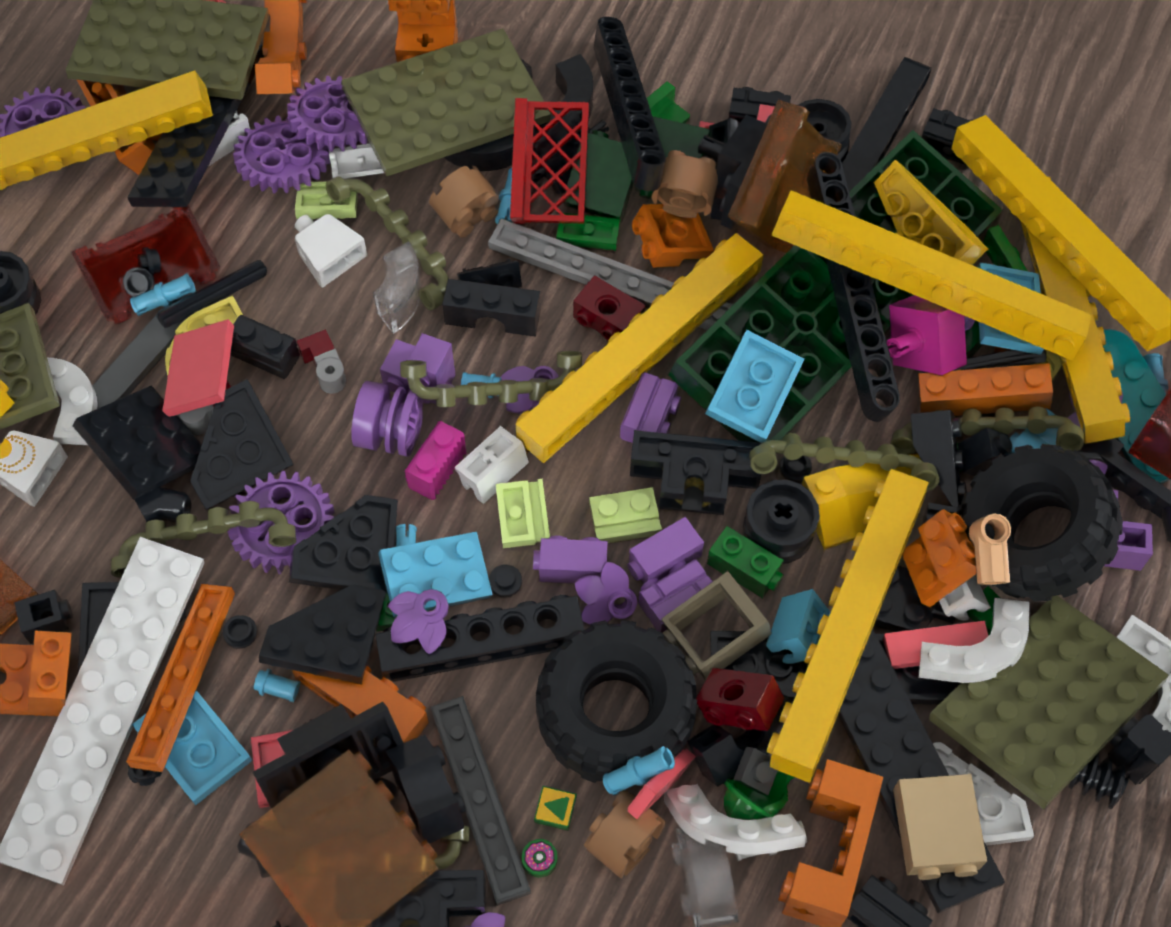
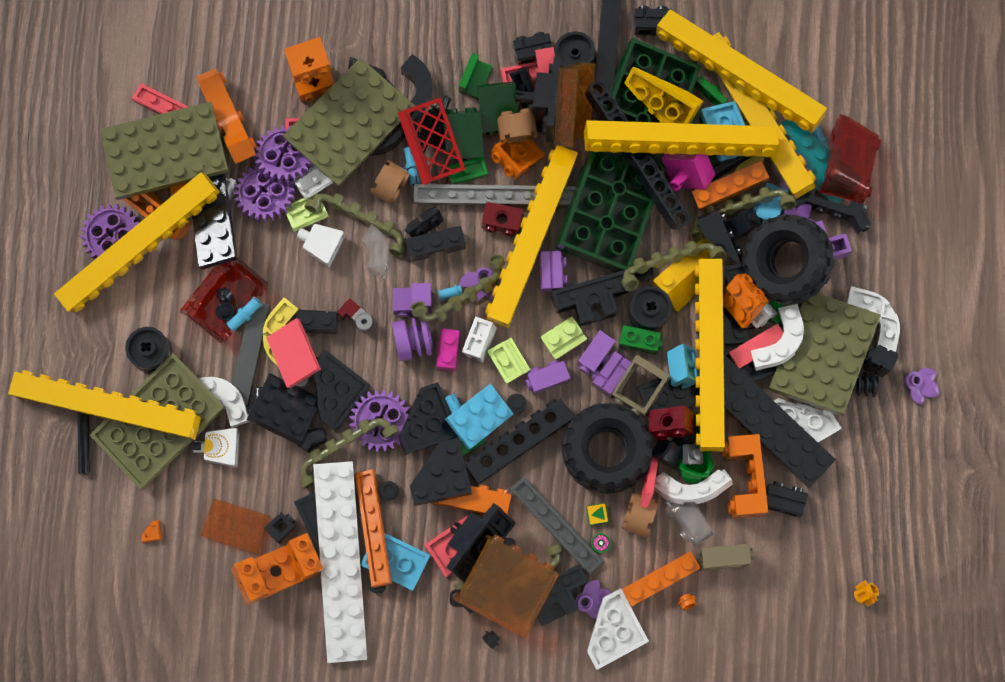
camera: 25 degrees left, 15 degrees up
(212, 293) = (271, 300): black axle -> none
(276, 685) = (423, 511): medium azure pin -> none
(415, 622) = (483, 449): medium lavender plate -> none
(428, 795) = (528, 532): black brick -> none
(602, 591) = (575, 390): medium lavender plate -> none
(629, 104) = (459, 82): black beam -> none
(638, 770) = (637, 483): medium azure pin -> none
(754, 386) = (608, 240): medium azure plate -> none
(939, 826) = (795, 447): tan brick -> none
(991, 554) = (772, 292): light nougat piece -> none

